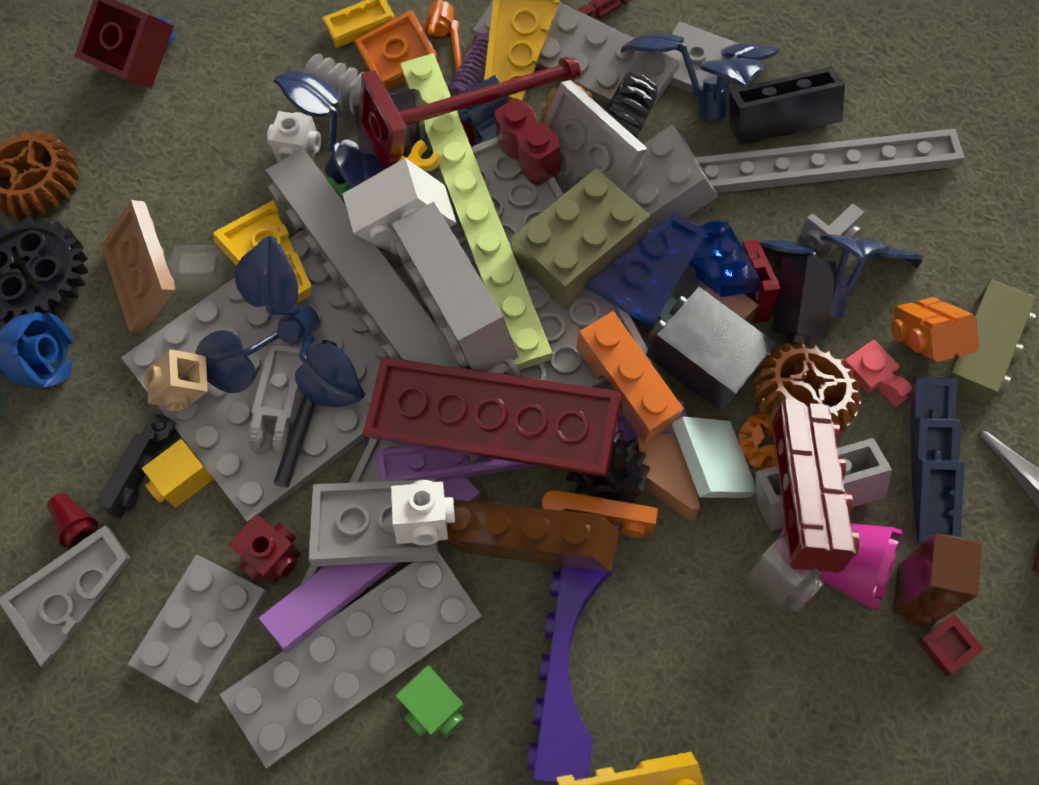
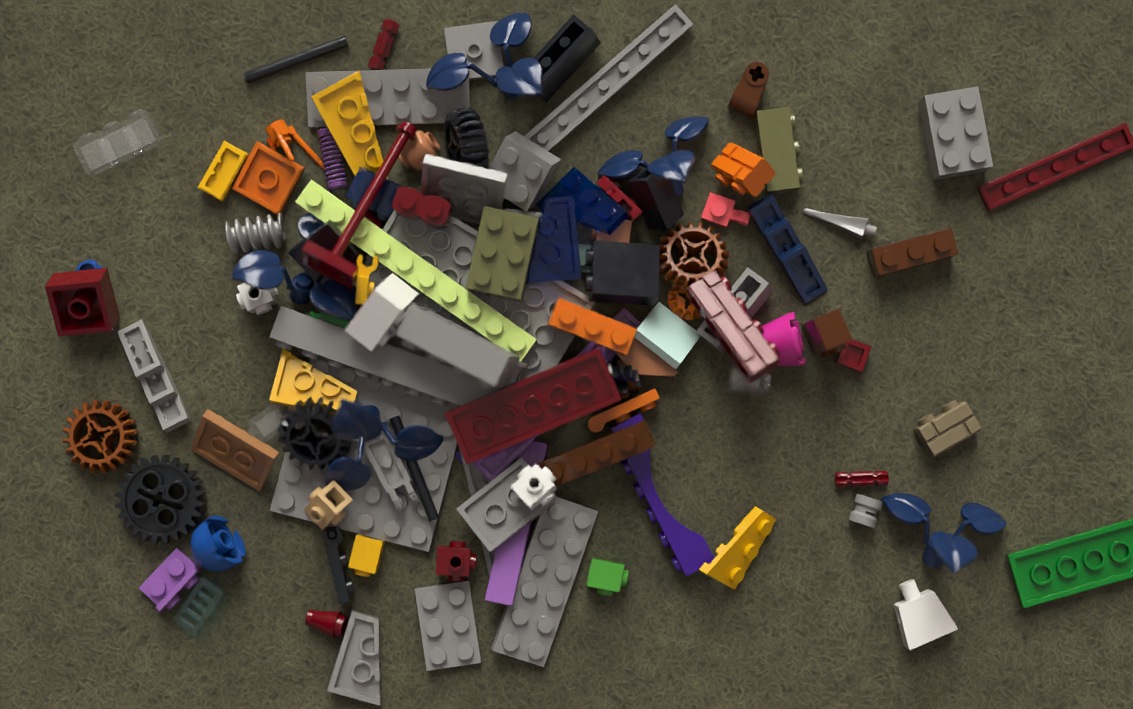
camera: 45 degrees left, 20 degrees up
(132, 154) = (154, 376): none -> light grey slope
(207, 302) = (305, 442): none -> black gear
(844, 225) = (649, 129): light grey bracket -> none
(994, 257) = (748, 93): none -> reddish brown piece

